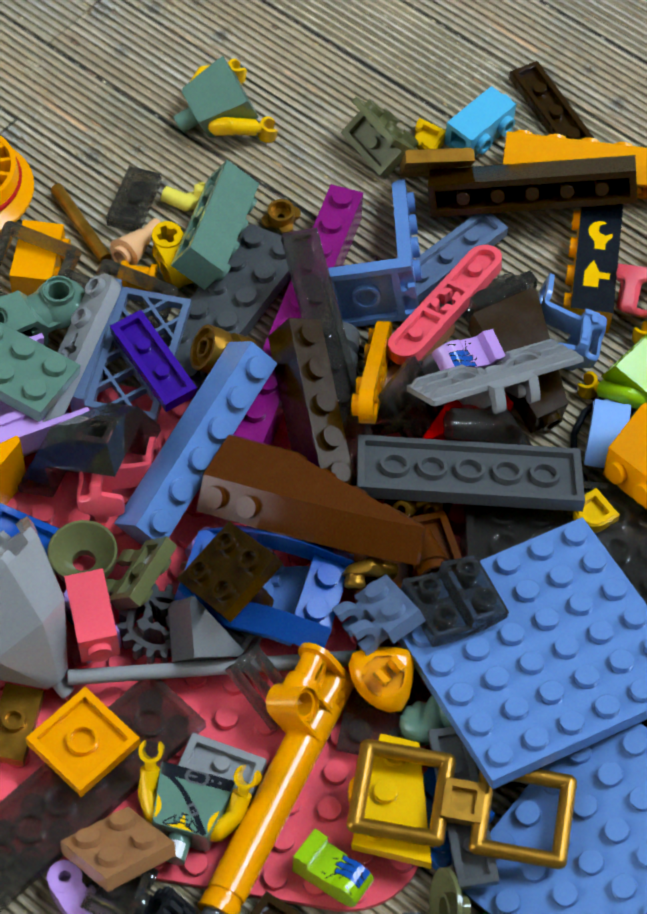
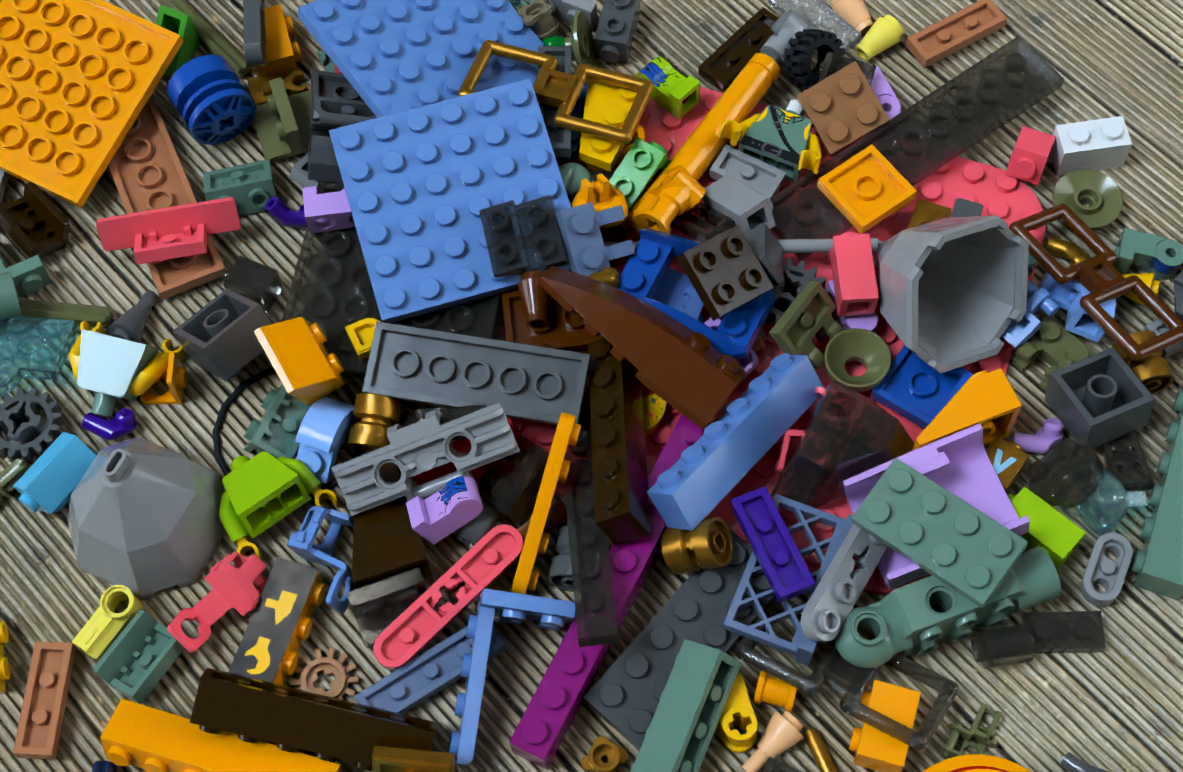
camera: 165 degrees left, 5 degrees up
(228, 703) = (740, 203): none -> light grey brick
(340, 747) = (638, 169): none -> bright green bracket
(540, 236) = (330, 667): none -> medium nougat gear
(562, 430) = (374, 416): none -> pearl gold wheel

